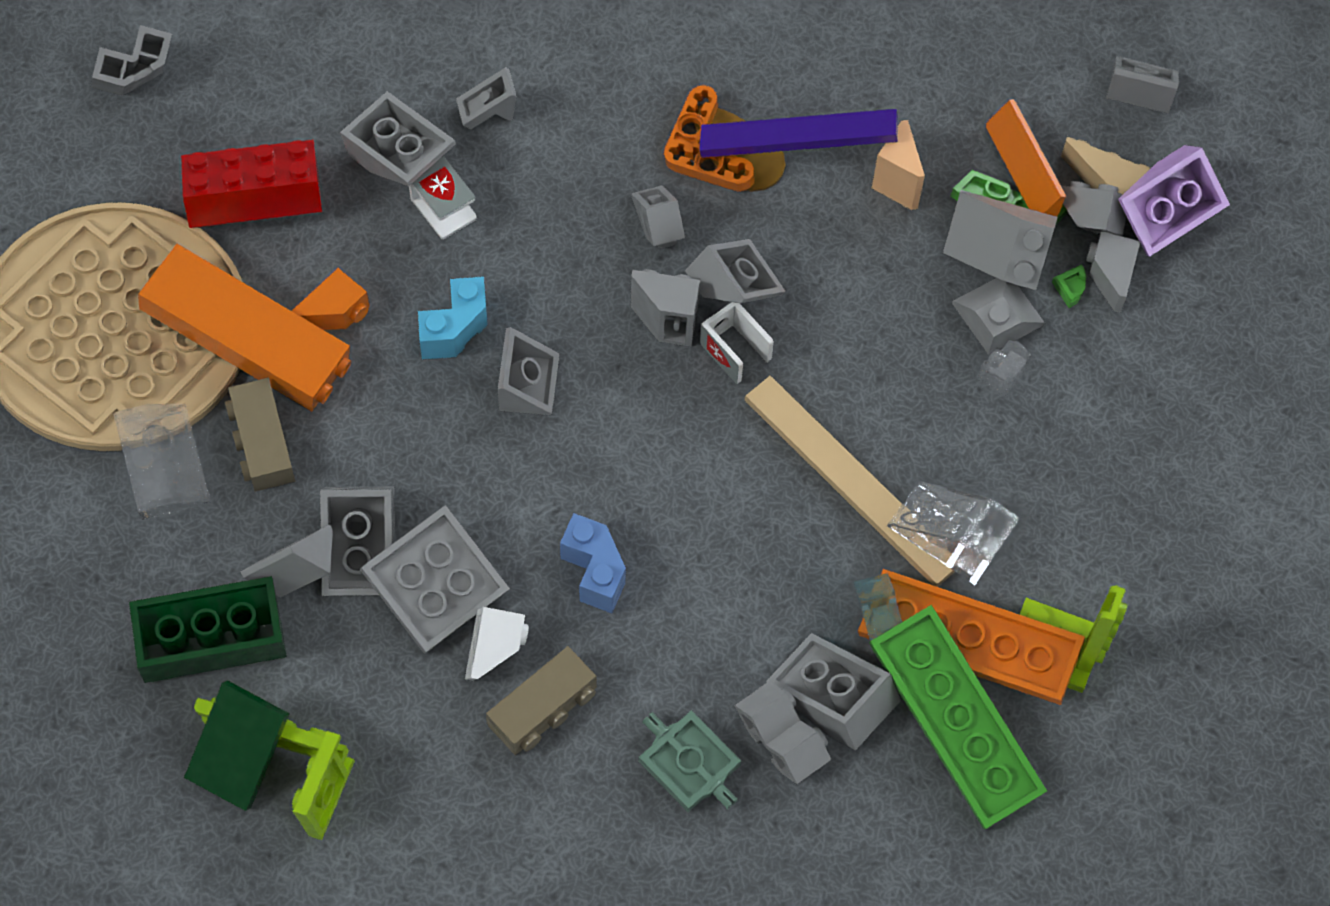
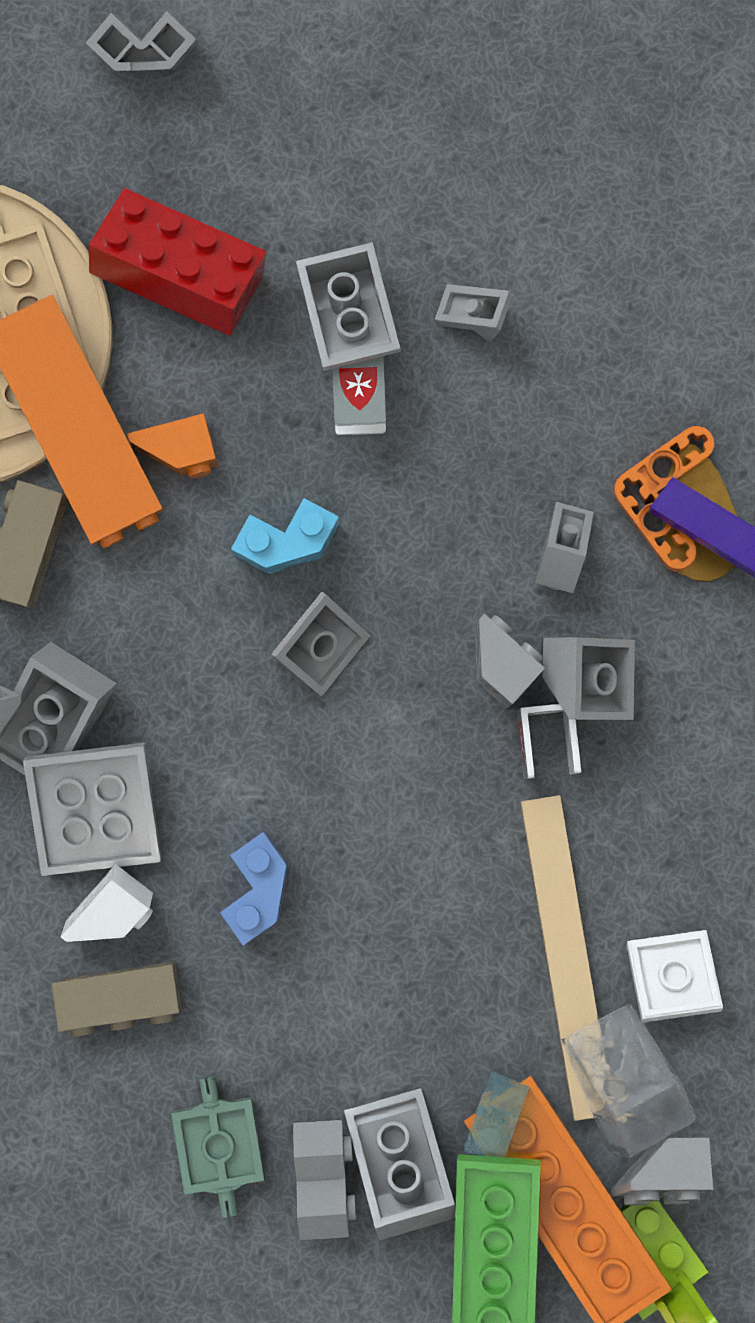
camera: 35 degrees right, 20 degrees up
(936, 443) = (674, 976): none -> white tile
(1027, 563) = (670, 1169): none -> light grey slope

